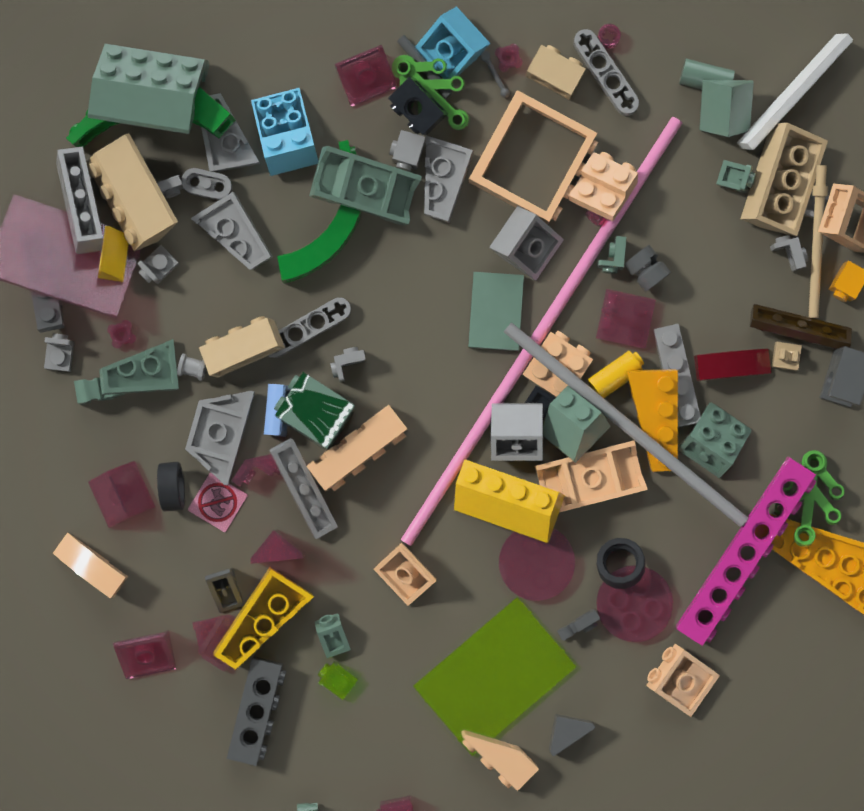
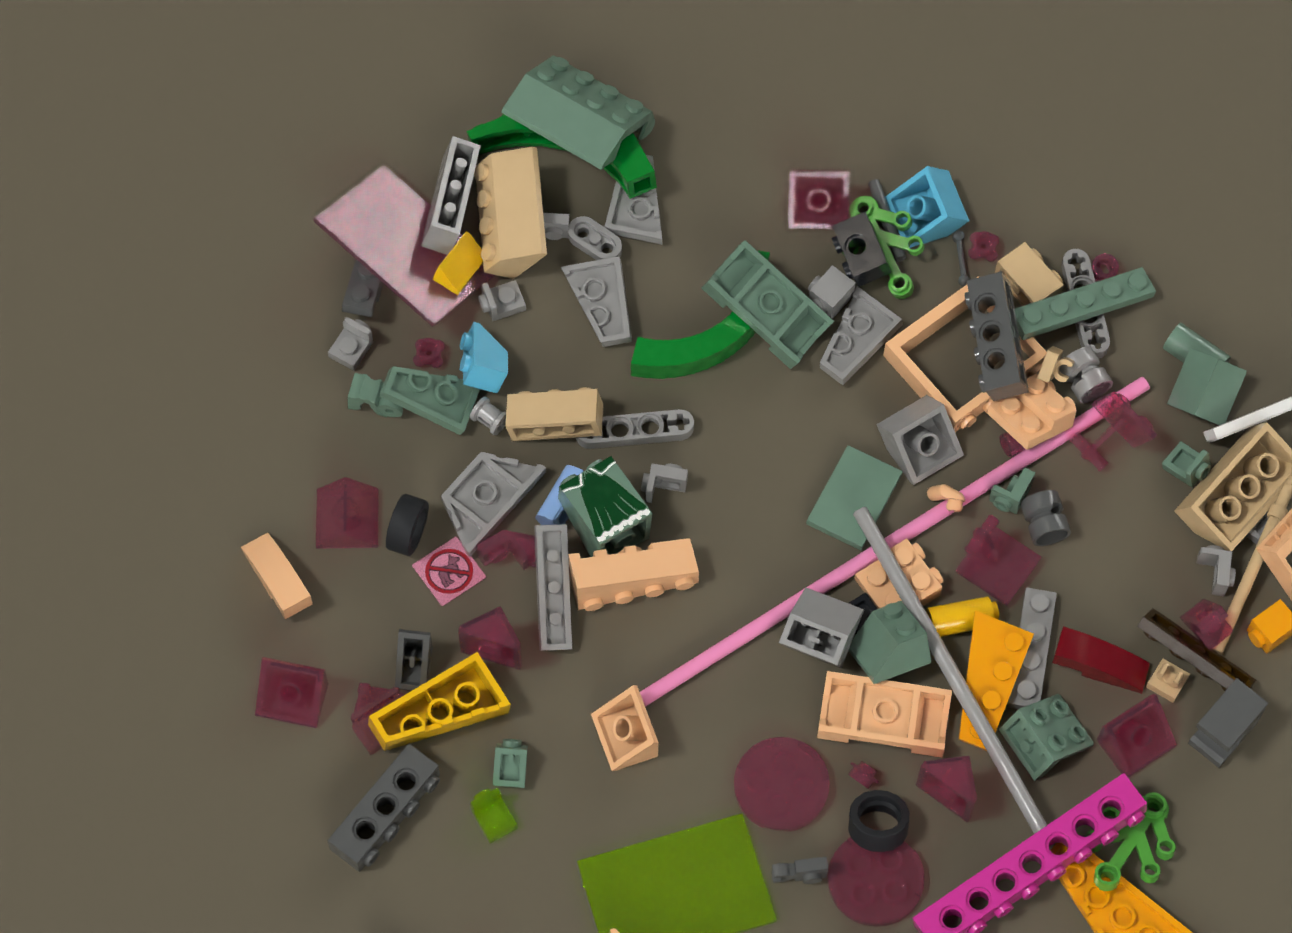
camera: 25 degrees right, 20 degrees down
(167, 325) = (483, 359): none -> medium azure slope
(284, 132) = (703, 222): medium azure slope -> none
(507, 501) = (778, 694): yellow slope -> none
(566, 281) = (945, 492): none -> light nougat arm
(580, 168) = (1011, 377): none -> dark grey brick
(594, 530) = (863, 774): none -> clear pink plate
(604, 142) = (1051, 365): none -> tan tile
(605, 77) = (1083, 303): none -> sand green plate
(630, 135) = (1087, 378): none -> light grey wheel
(664, 512) = (950, 783): none -> clear pink slope
(672, 164) = (1123, 419): none -> clear pink plate
(782, 413) = (1137, 736): none -> clear pink slope
(798, 300) = (1207, 623): none -> clear pink slope

